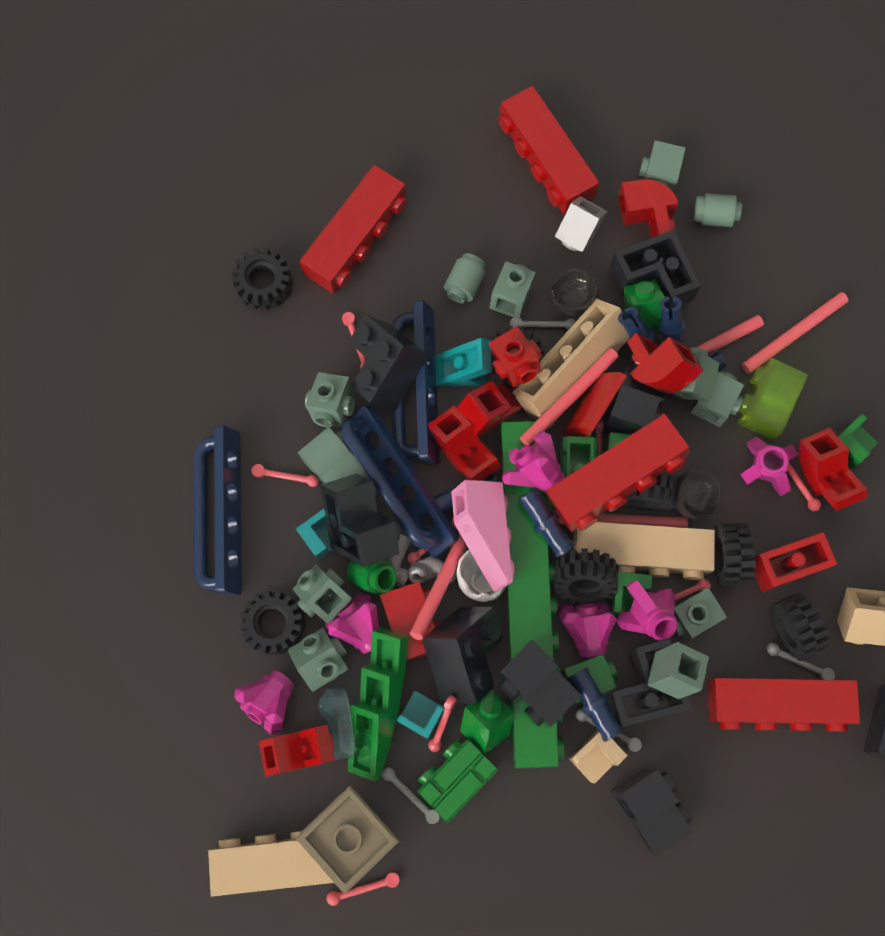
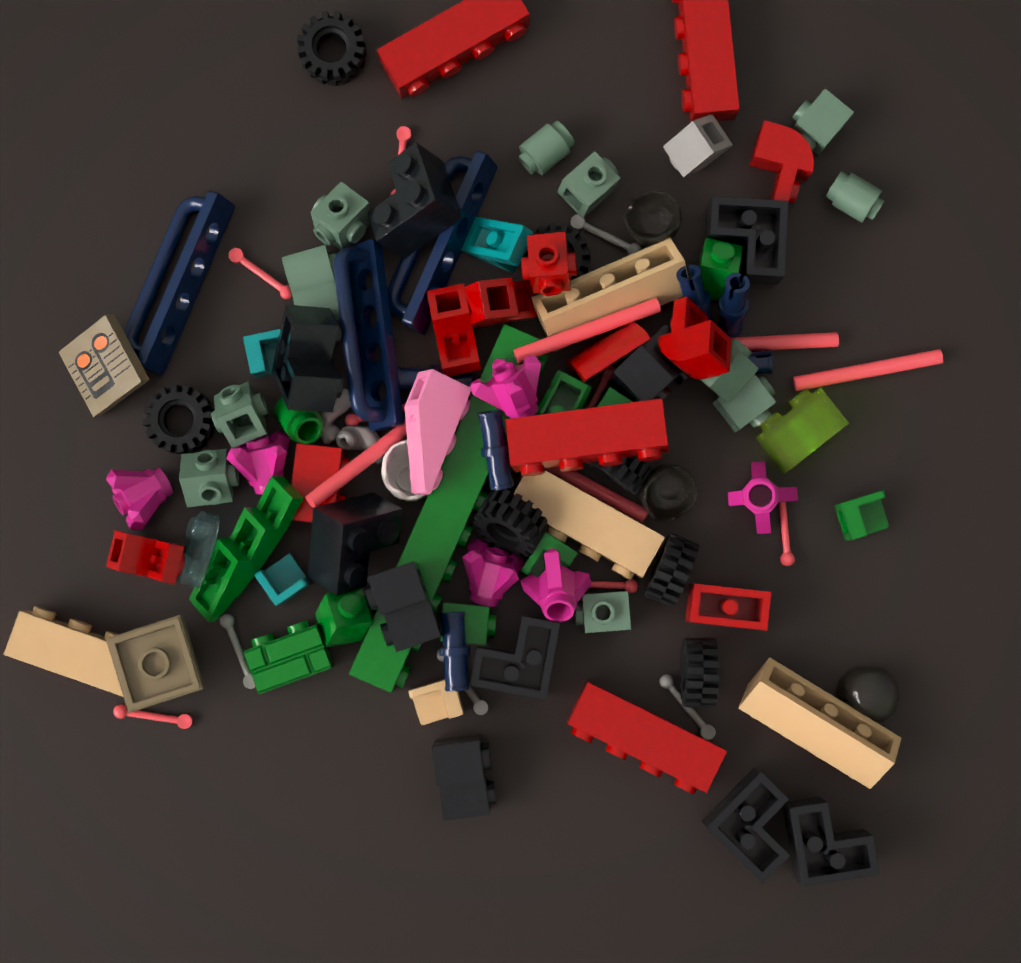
camera: 25 degrees right, 10 degrees up
(189, 606) = (103, 365): none -> tile
(435, 743) = (285, 614): coral hinge -> none
(678, 670) = (546, 657): sand green brick -> none
(827, 471) = (817, 532): red brick -> none

